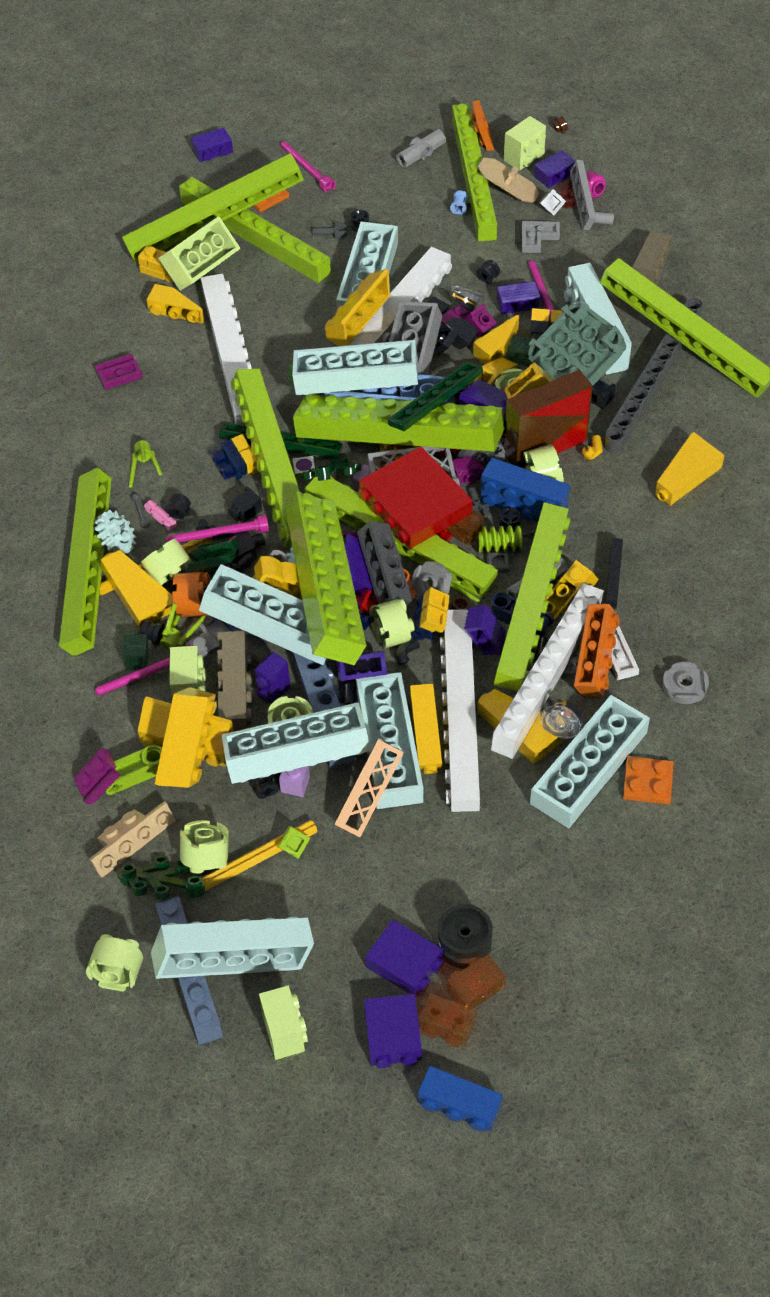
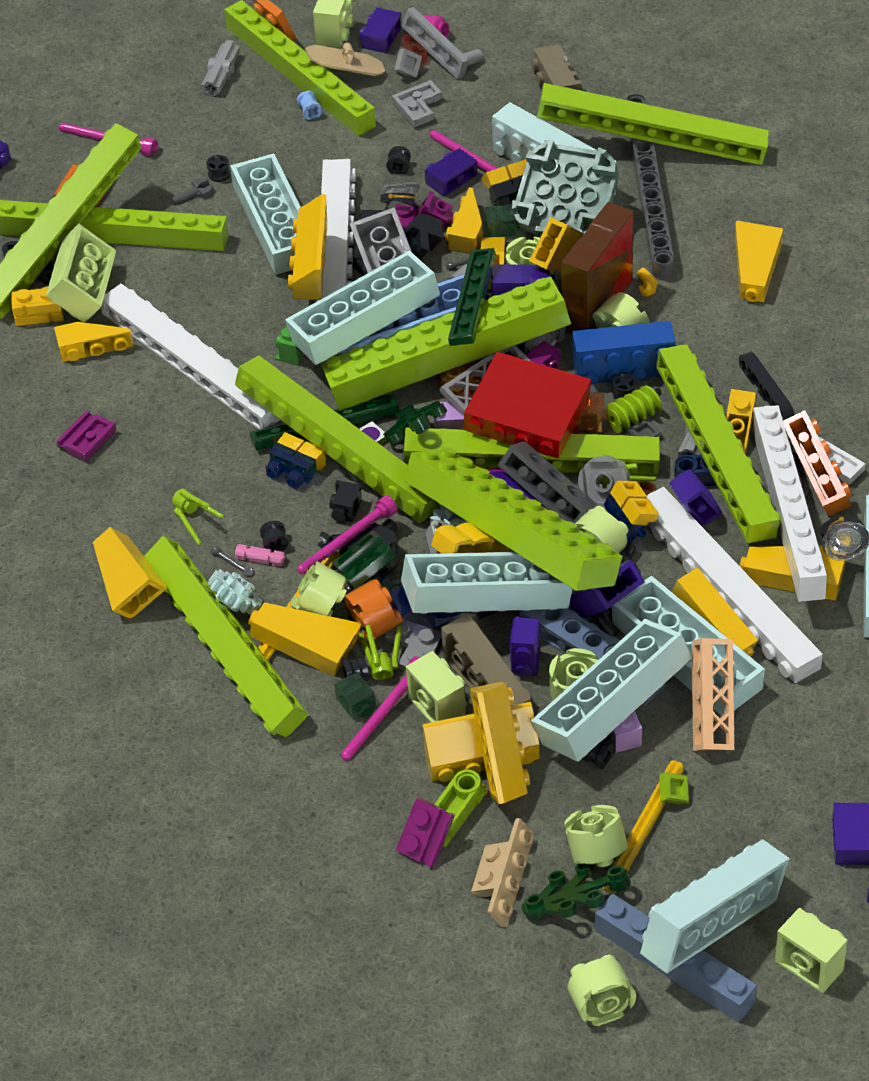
camera: 30 degrees left, 5 degrees down
(59, 482) = (126, 573): none -> yellow slope

